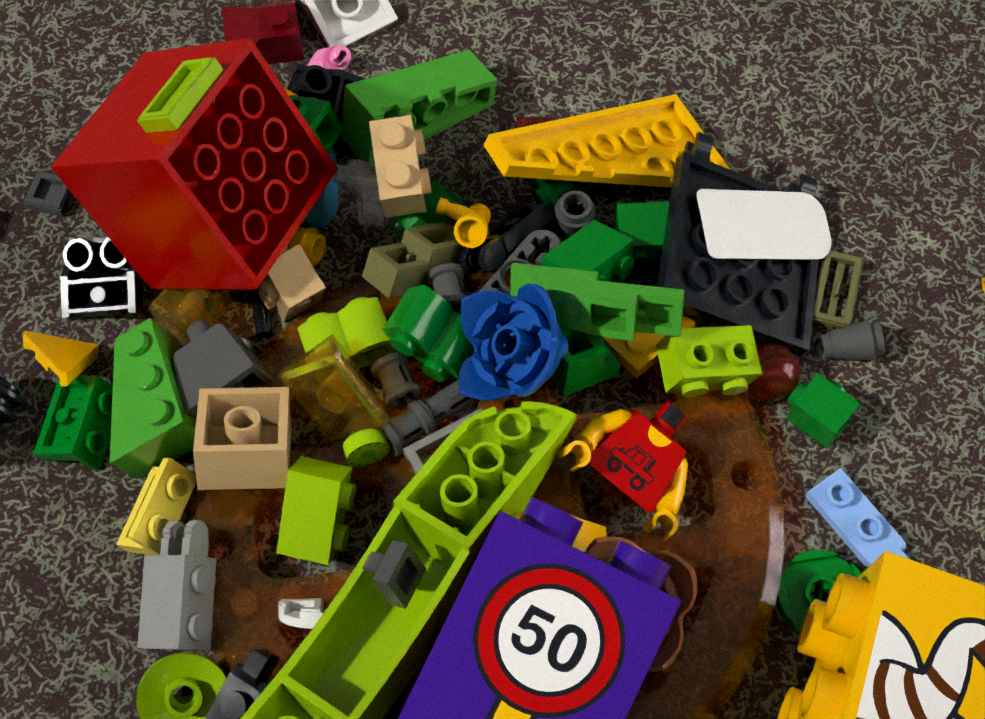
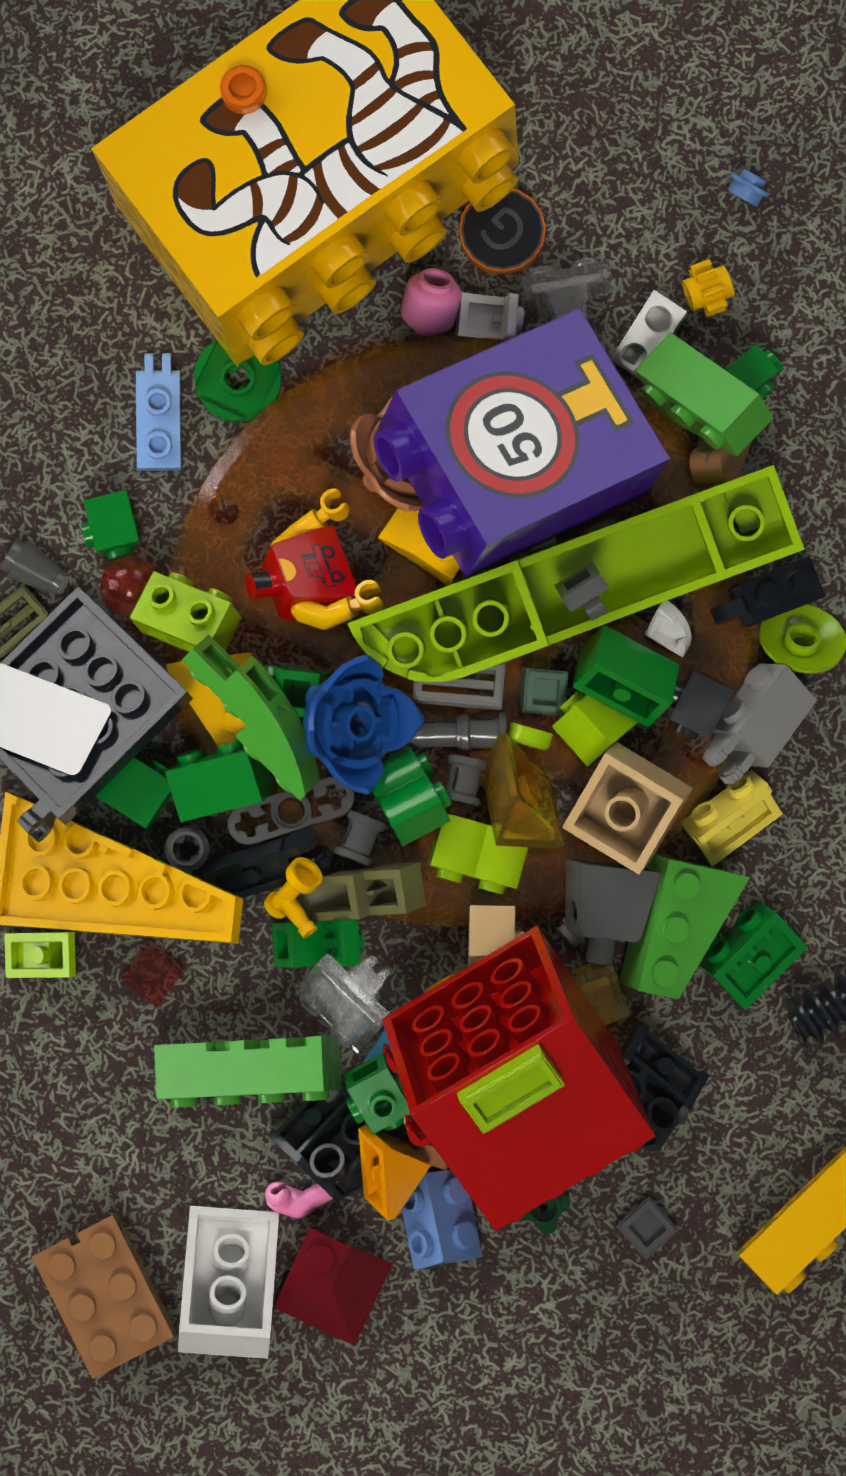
camera: 145 degrees left, 20 degrees up
(61, 355) = (732, 1030): yellow tile -> none
(238, 567) = (698, 704): none -> black brick
(314, 543) = (626, 676): none -> green brick
(376, 496) = (542, 691): none -> sand green tile
(398, 167) = (333, 968): tan brick -> none
(617, 89) = (40, 955): none -> lime slope

